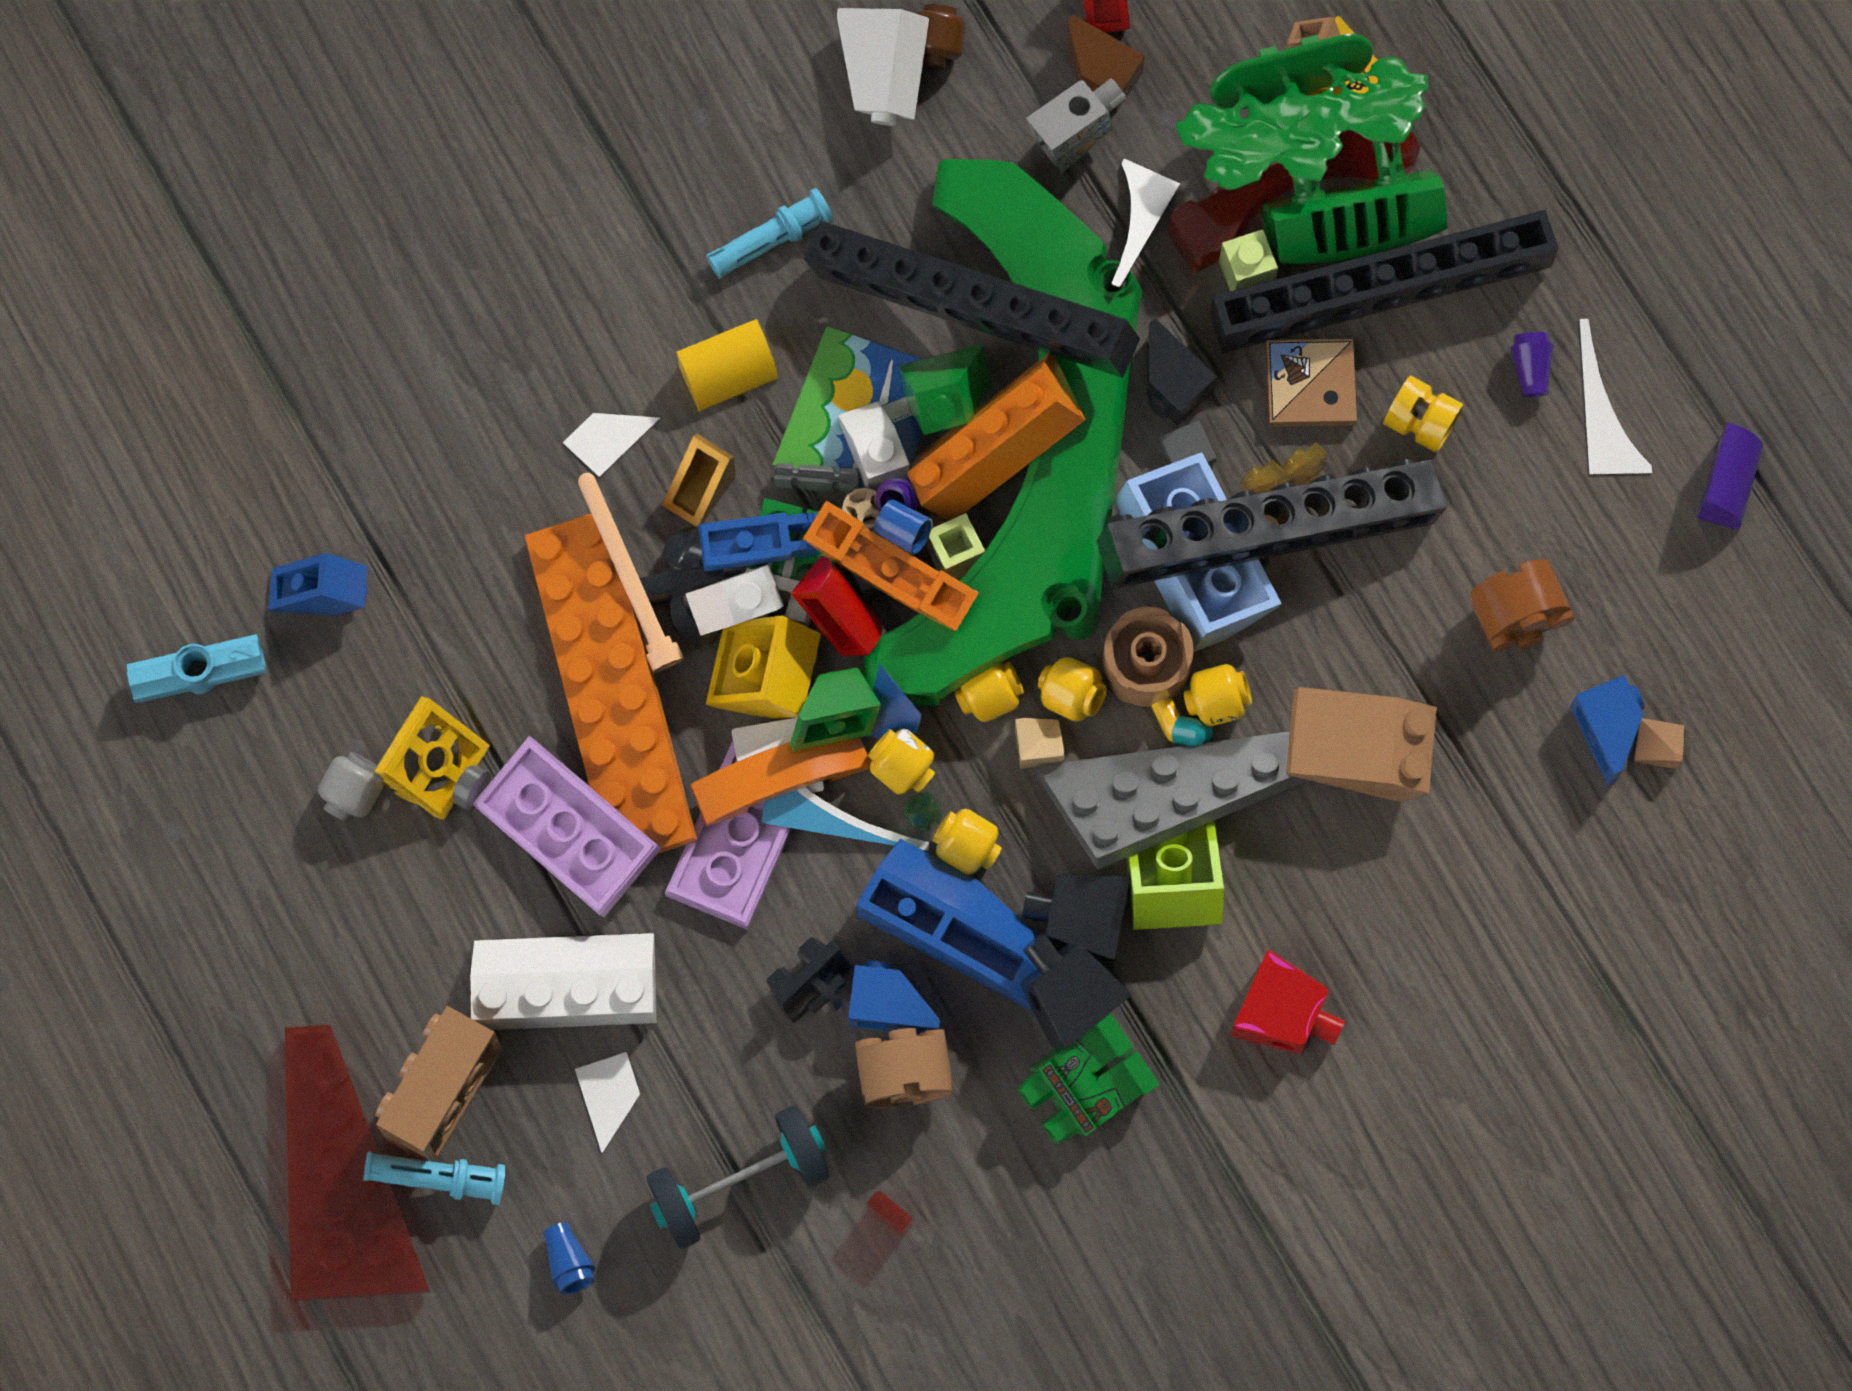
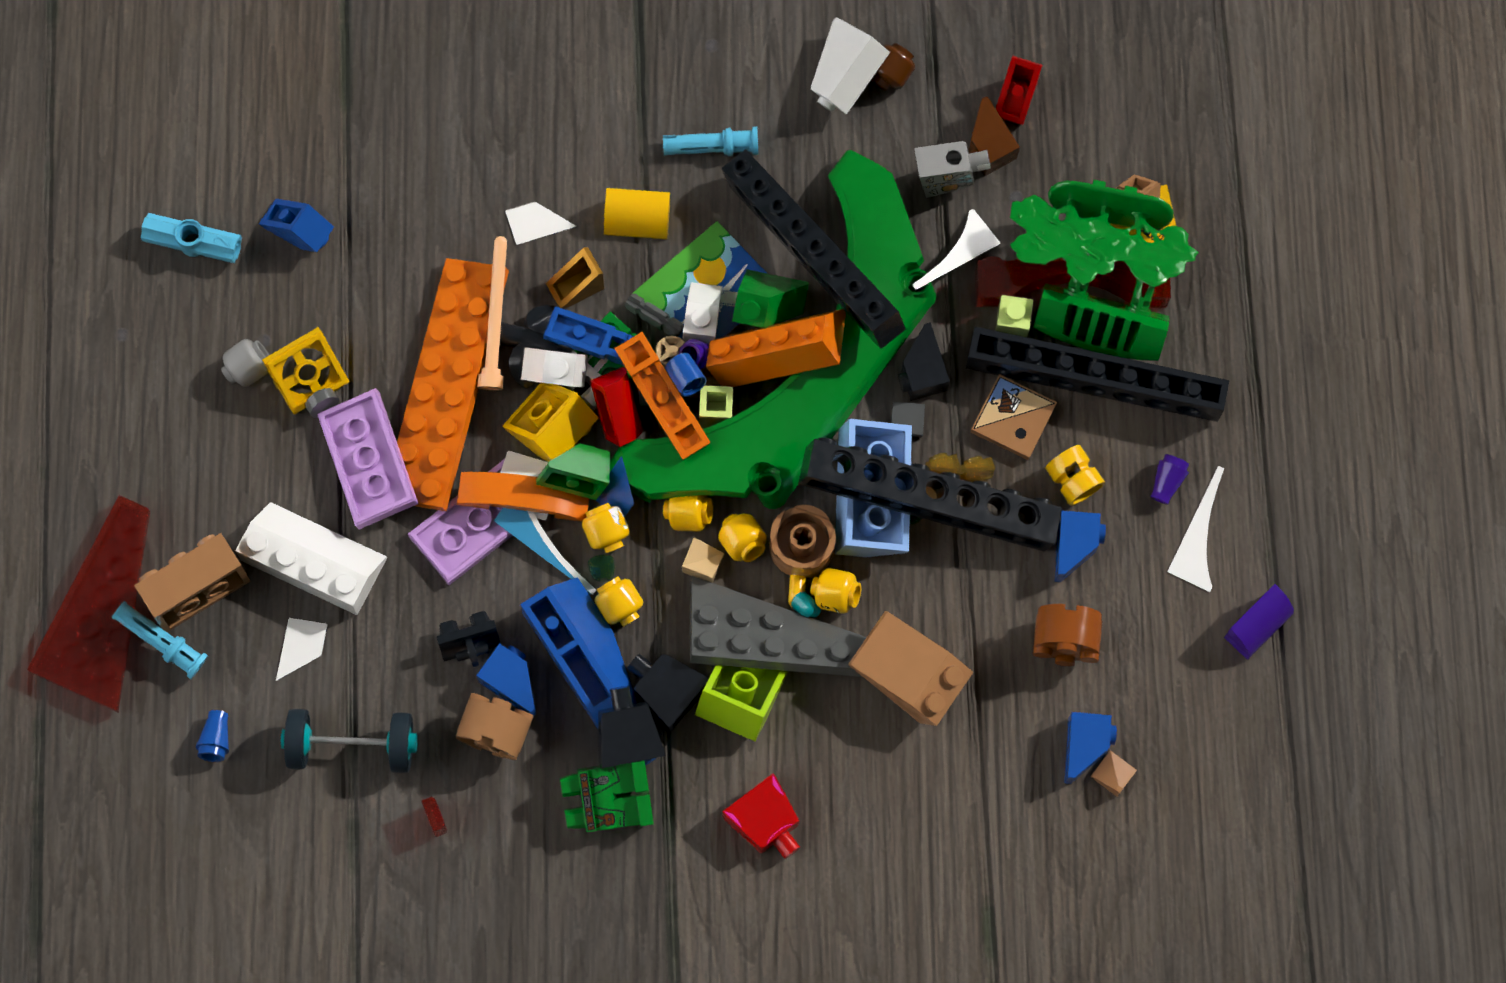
camera: 25 degrees right, 0 degrees up
(1468, 488) = (1076, 541): none -> blue slope

